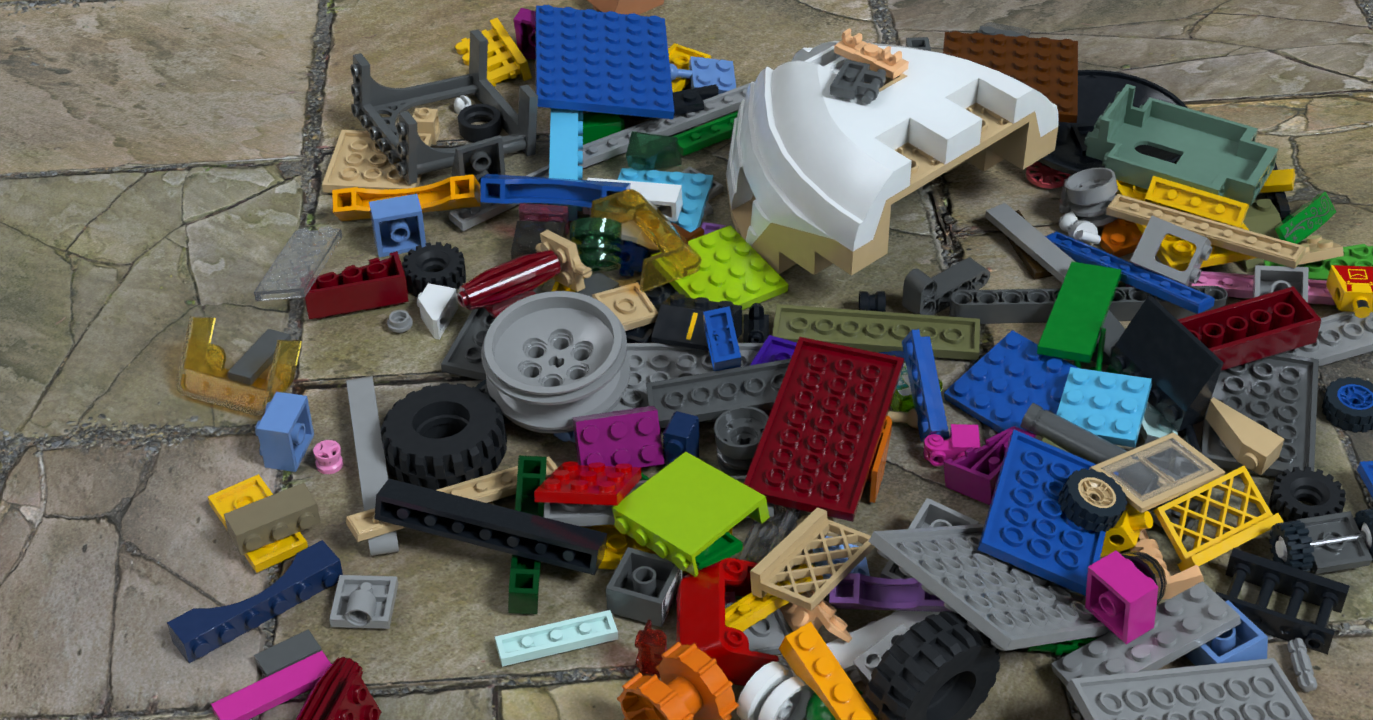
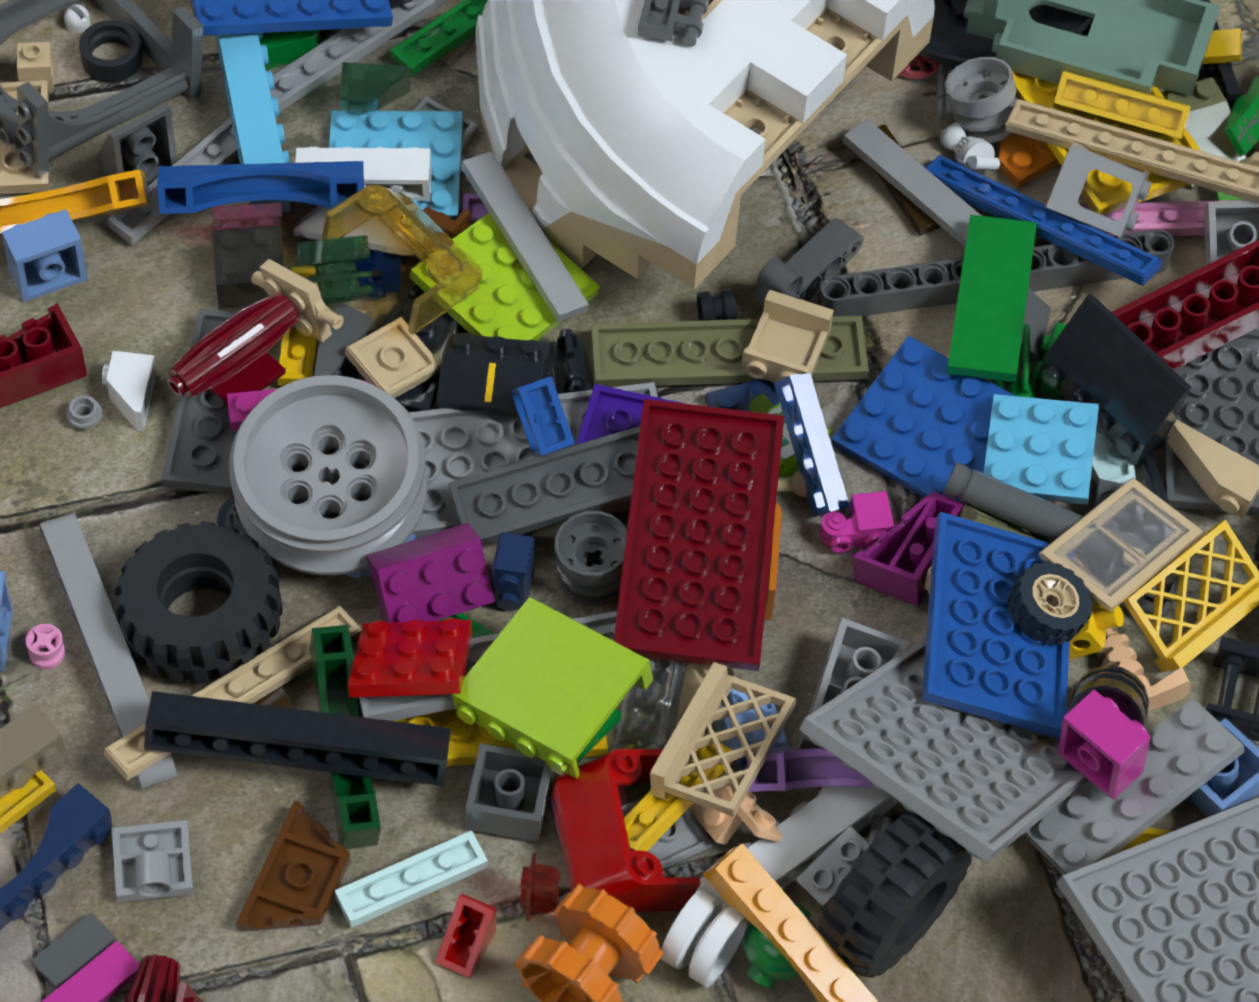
camera: 15 degrees left, 15 degrees up
(435, 266) = (112, 302): black tyre -> none
(468, 626) = (296, 877): none -> reddish brown wing
(590, 679) = (467, 935): none -> red slope
(738, 245) = (524, 236): none -> light grey tile
(921, 312) = (787, 338): none -> tan panel

